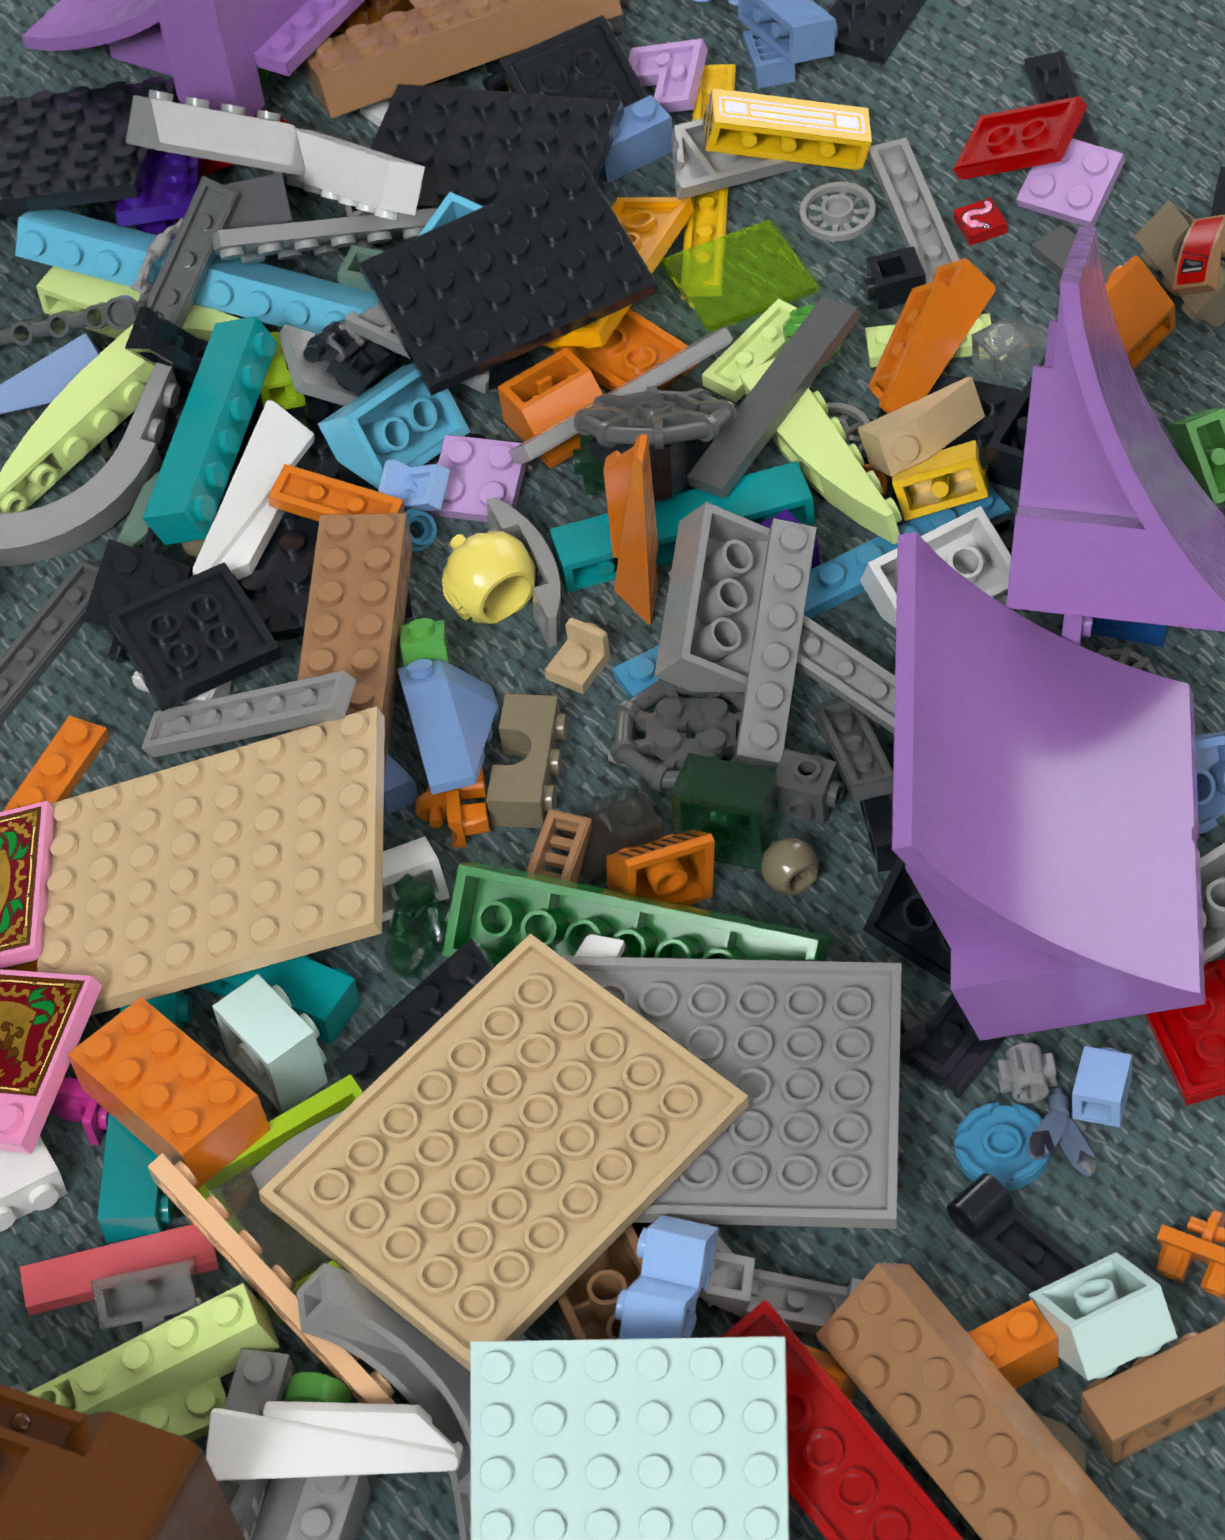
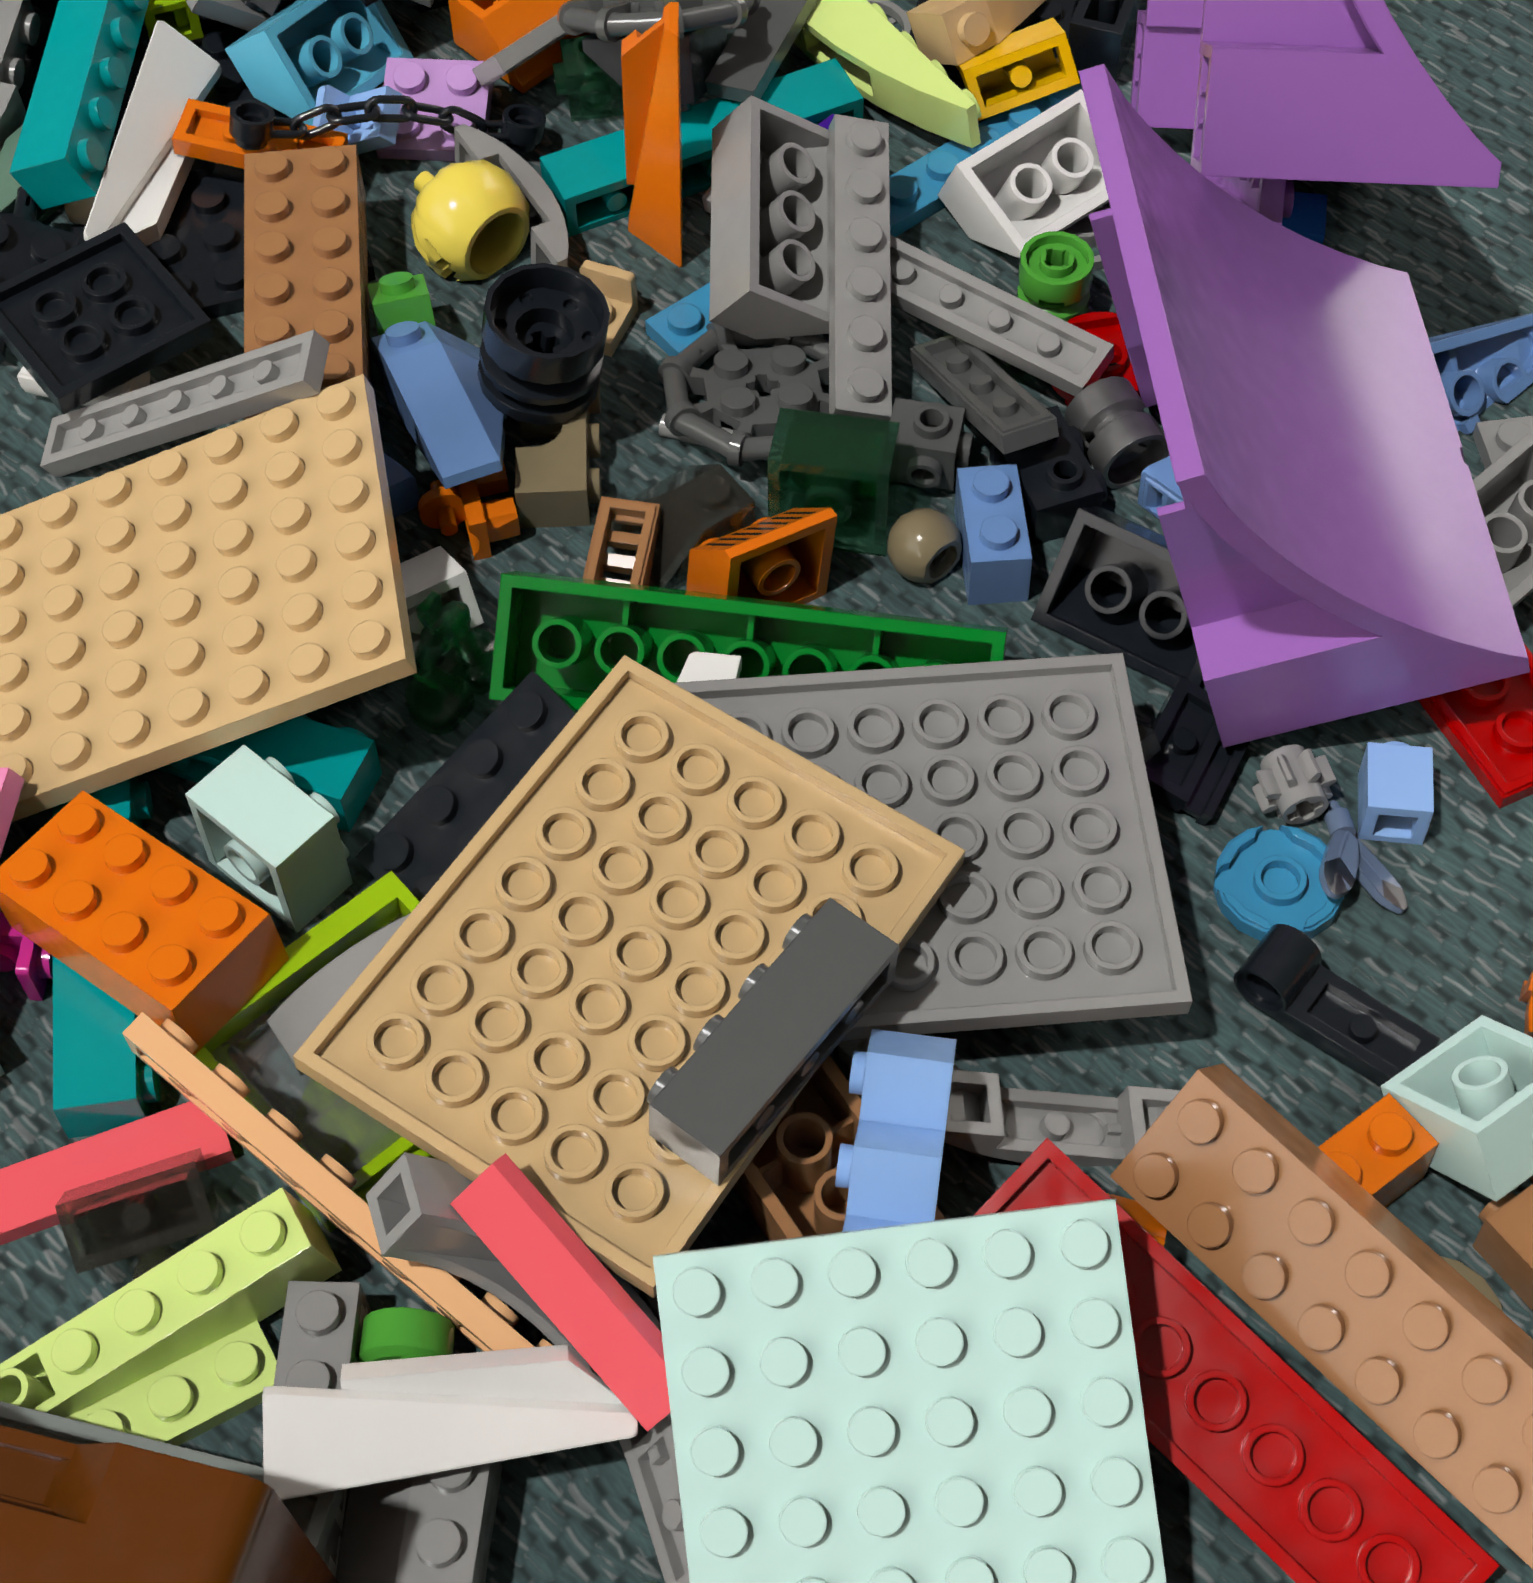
camera: 15 degrees left, 5 degrees up
(331, 487) = (254, 121): none -> black piece
(418, 1359) = (569, 1286): none -> coral tile
(426, 529) = (377, 171): dark azure plate -> none
(519, 688) = (542, 343): none -> black wheel
(582, 1211) = (771, 1039): none -> dark grey brick
(842, 862) = (993, 534): none -> medium blue brick

